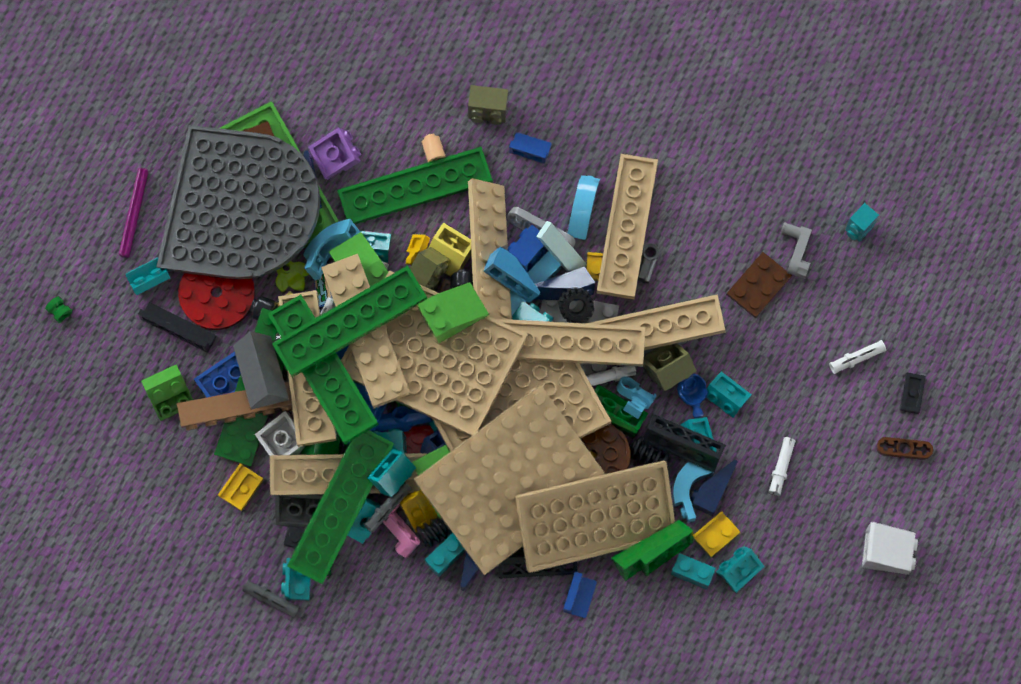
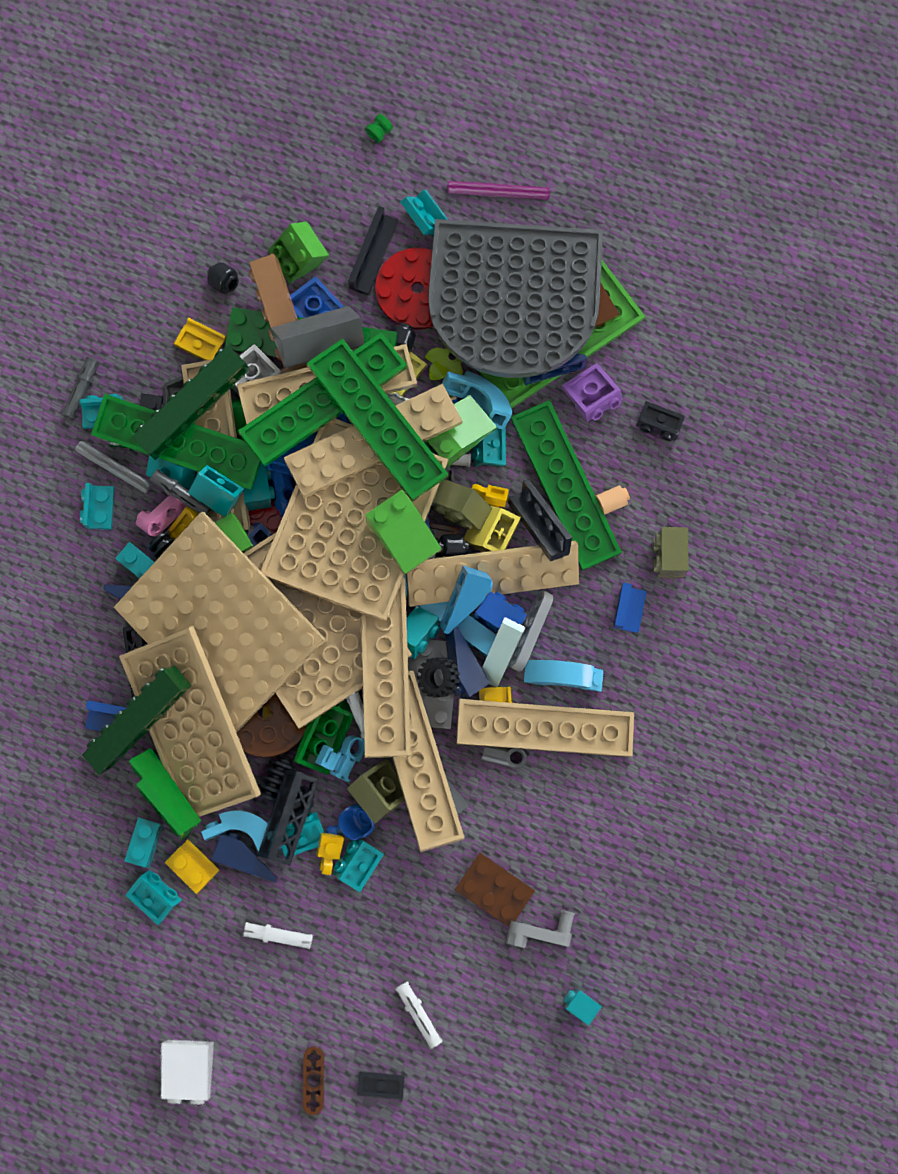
camera: 80 degrees right, 5 degrees up
(183, 461) = (222, 278): none -> black head
(310, 483) = (190, 402): none -> dark green brick
(349, 575) = (113, 466): none -> light grey axle
(368, 100) = (660, 421): none -> black bracket
(385, 590) = (97, 507): none -> teal bracket
(450, 208) = (541, 522): none -> black fence
(588, 561) = (136, 719): none -> dark green brick
(713, 416) = (329, 849): none -> yellow plate

